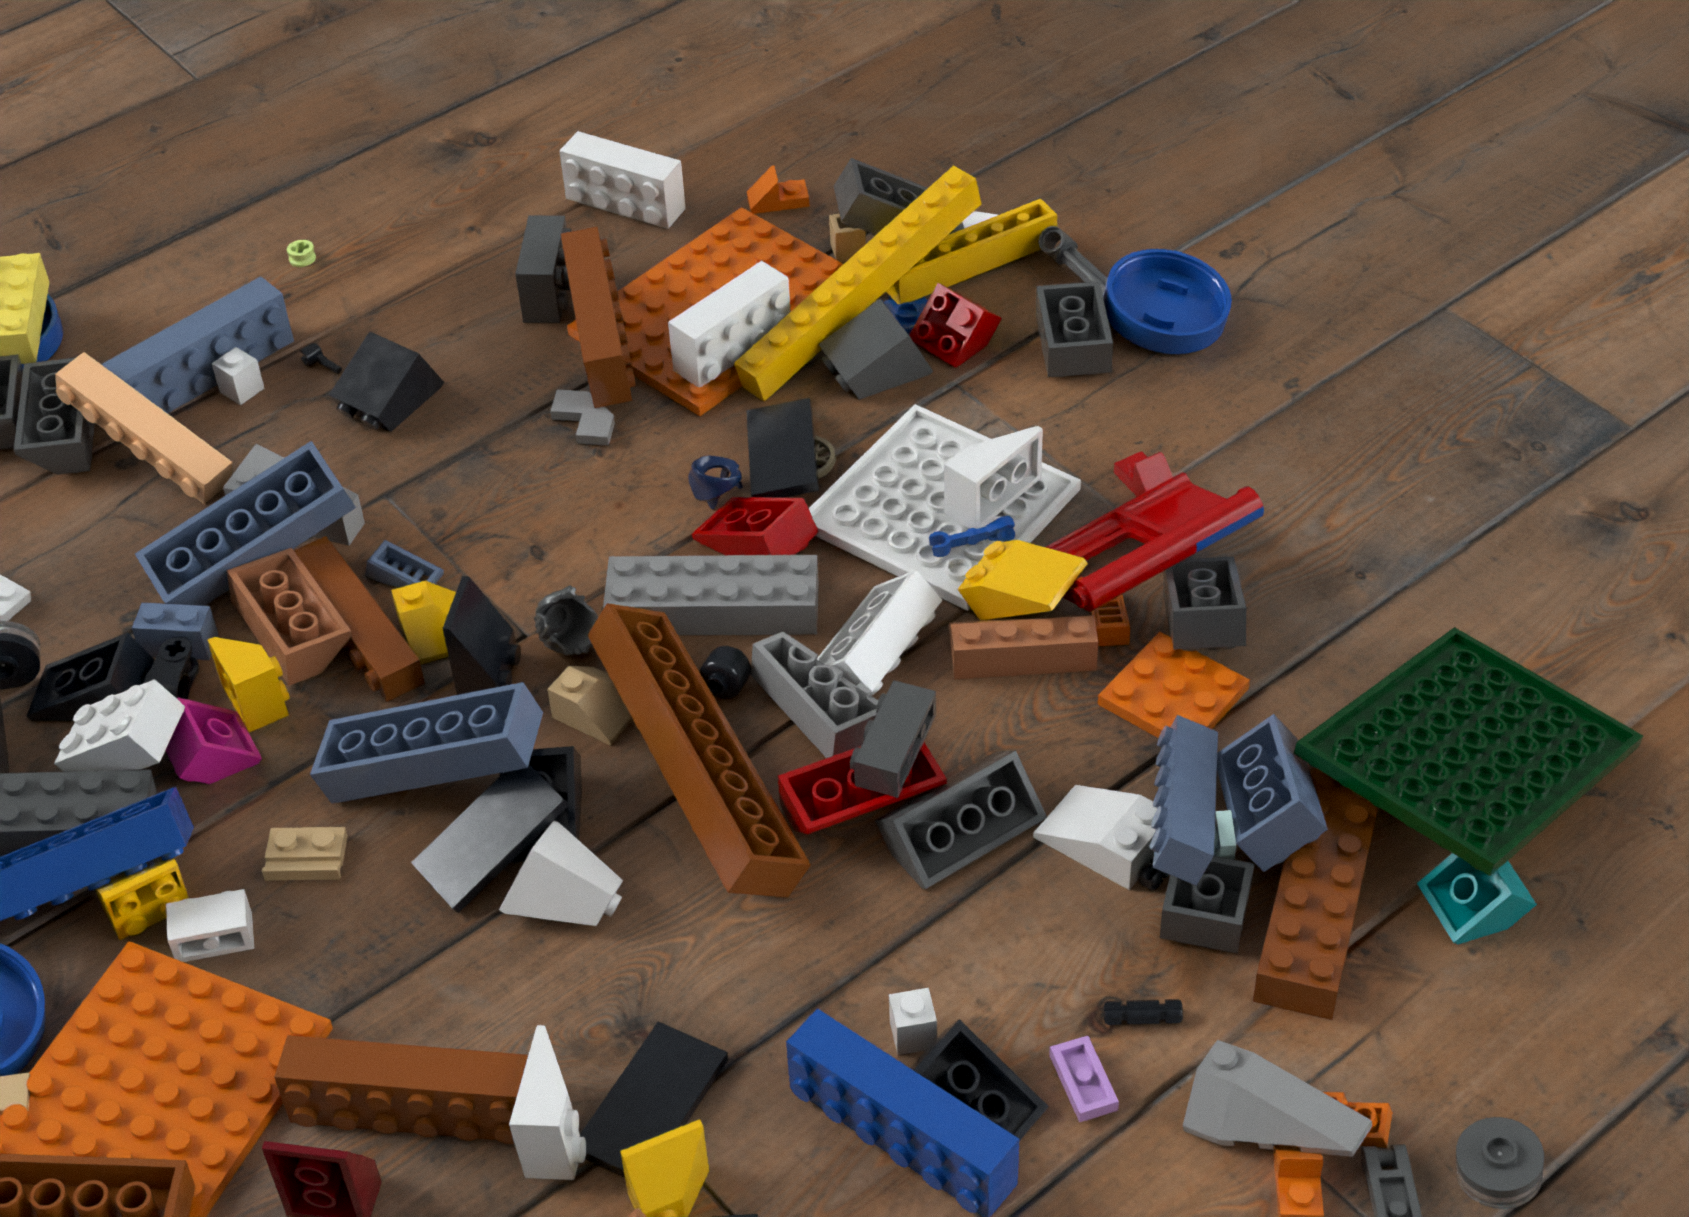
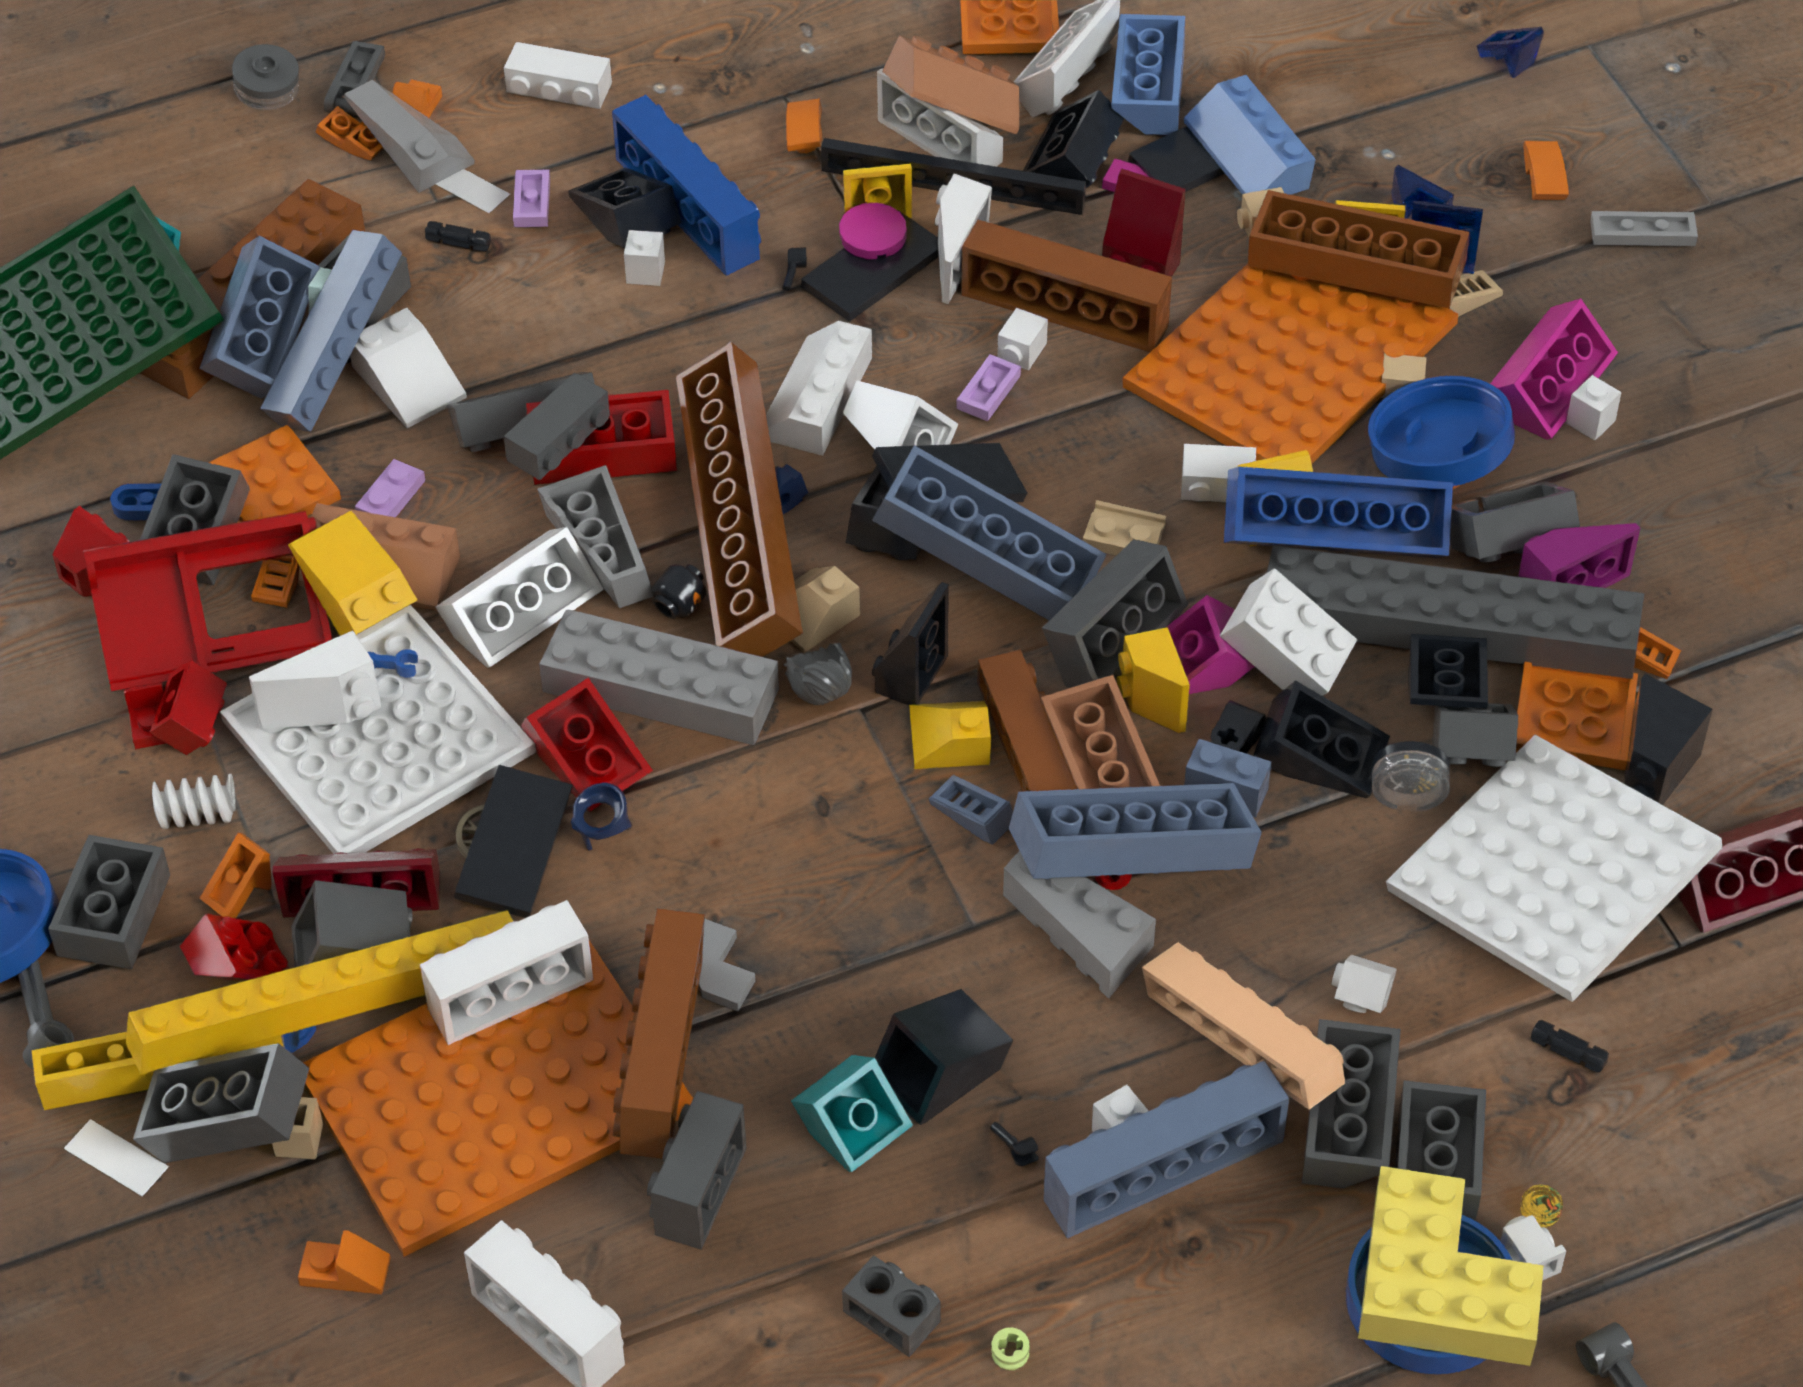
camera: 165 degrees left, 5 degrees up
(47, 502) = (1363, 984): none -> white brick
(293, 724) = (1127, 597): none -> dark grey brick
(387, 247) = (884, 1311): none -> dark grey brick
(452, 1025) = (1022, 338): none -> white brick
(453, 339) = (852, 1111): none -> teal slope
(477, 969) = (988, 387): none -> lavender plate
(655, 1114) = (872, 230): none -> dark pink tile
(660, 803) = (790, 487): none -> dark blue piece
(664, 919) = (819, 387): none -> white slope
(742, 1083) = (796, 259): none -> black hand
(889, 381) = (408, 871): none -> dark red slope
(983, 375) = (239, 872): none -> orange slope
(1050, 712) = (392, 489): none -> lavender plate
(1059, 408) = (194, 802): none -> white piece
(1106, 470) = (189, 708): none -> red brick
(1156, 1091) = (474, 190): none -> white sticker
(1267, 640) = (134, 500): none -> blue plate
(1269, 563) = (80, 534): none -> red slope

